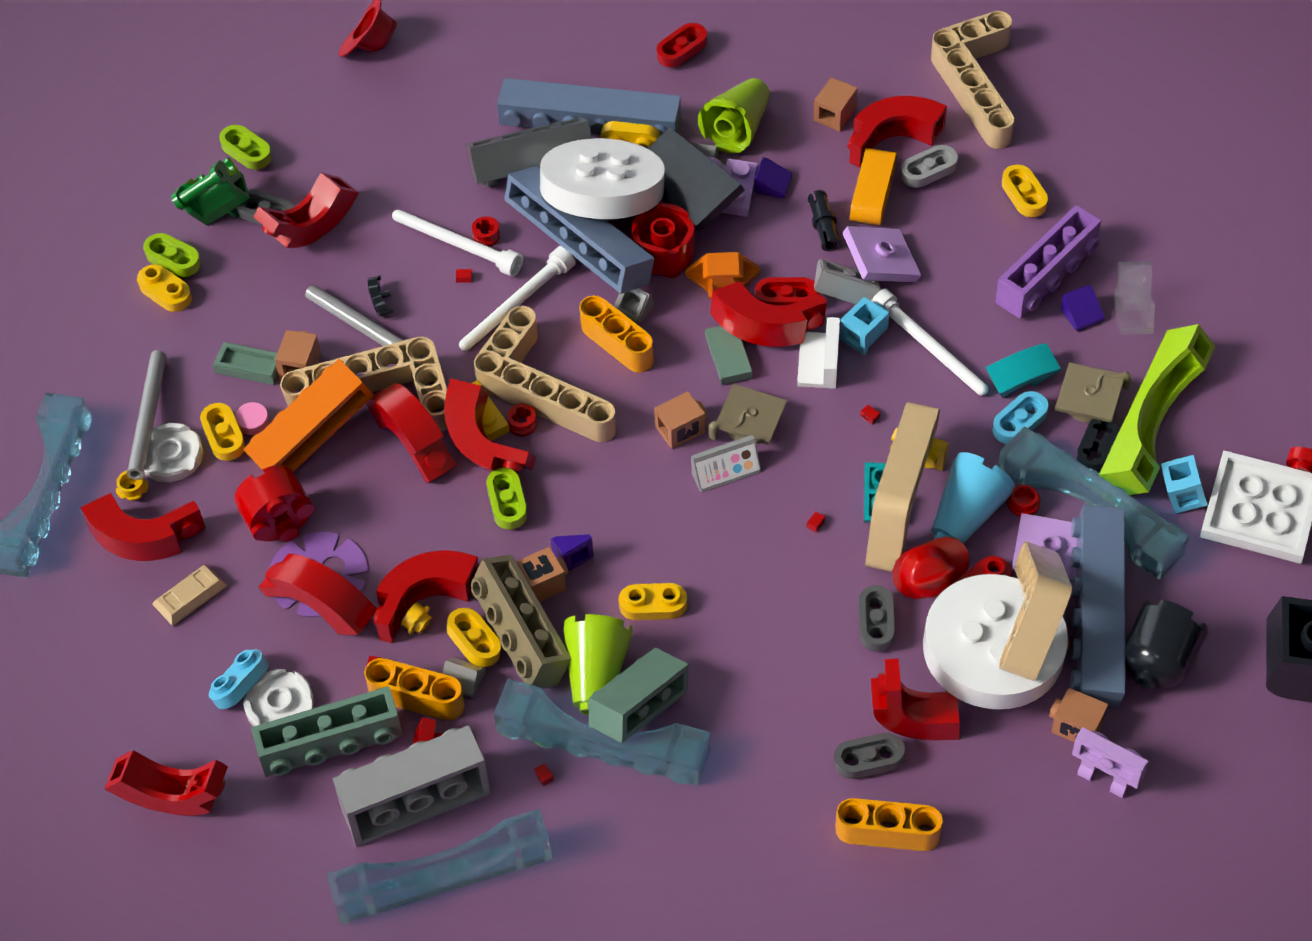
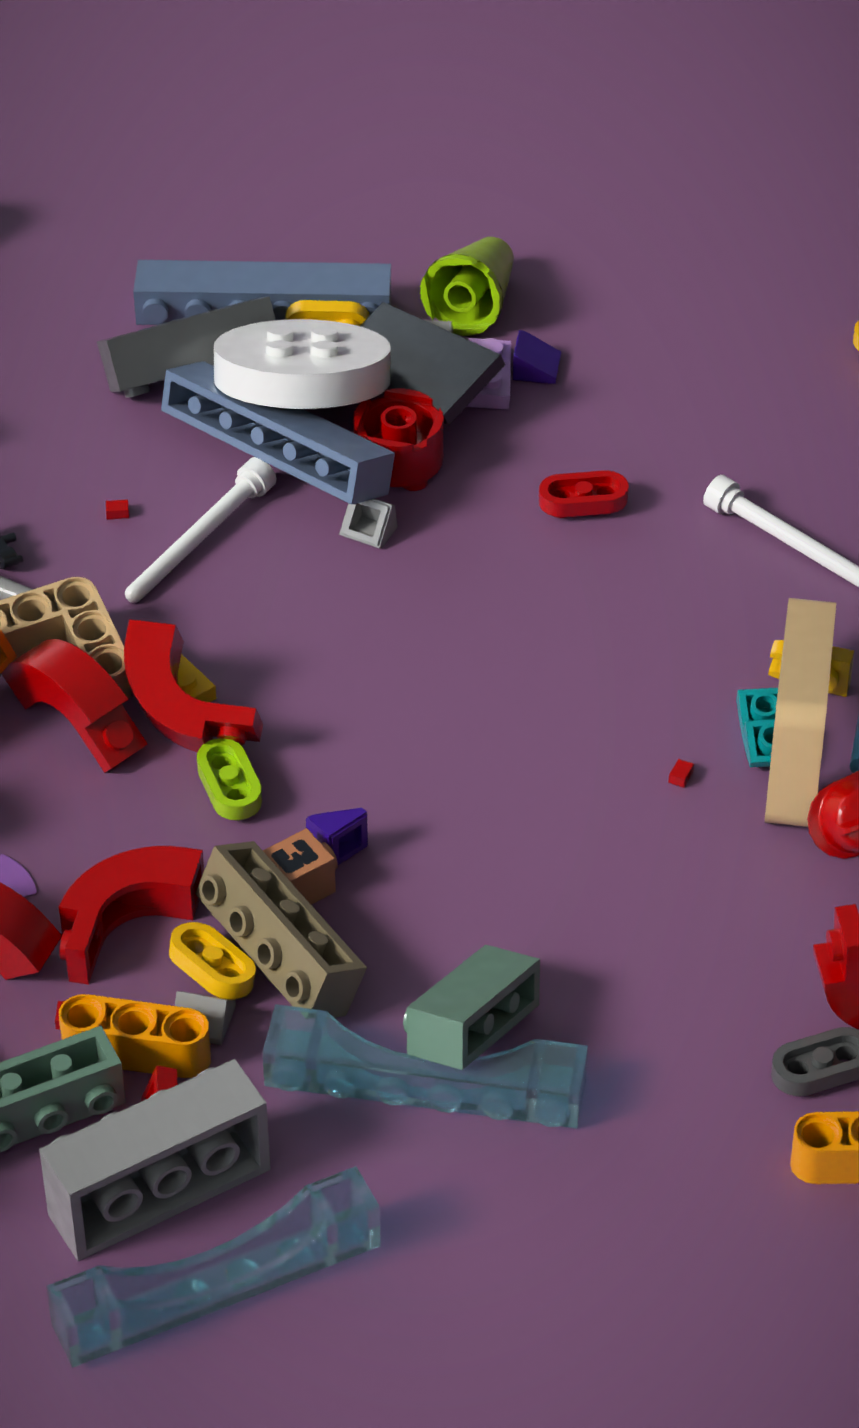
camera: 10 degrees left, 10 degrees down
(416, 619) = (122, 945): yellow plate -> none
(486, 223) = (149, 455): red bush -> none
(505, 377) = (253, 639): tan beam -> none
(507, 261) = (179, 484): white piece -> none
(528, 413) = (232, 668): red bush -> none
(543, 774) = (346, 1134): red piece -> none
(596, 654) = (403, 959): lime cone -> none
(616, 333) = (352, 560): light orange beam -> none
(653, 602) = (466, 893): yellow plate -> none
(679, 46) = (378, 210): red plate -> none
(680, 419) = (463, 658): nougat brick -> none
(721, 269) = (487, 475): orange piece -> none
(725, 463) = (539, 708): slope -> none
(728, 355) = (515, 574): sand green tile -> none
(747, 414) = (560, 648): dark tan hat -> none
(765, 323) = (561, 527): red arch -> none
(819, 357) = (646, 567): white panel -> none
(824, 220) = (618, 403): black pin -> none
(835, 104) = (606, 263): nougat brick -> none
(843, 282) = (665, 474): light grey slope -> none
(863, 325) = (700, 522): medium azure brick -> none
(870, 414) = (730, 633): red piece -> none
(873, 186) = (678, 357): light orange beam -> none
(876, 620) = (800, 893): dark grey plate -> none
(881, 254) = (707, 435): lavender plate -> none
(893, 117) = (694, 273): red arch -> none
(926, 166) = (750, 328): light grey plate -> none
(954, 58) = (762, 200): tan beam -> none

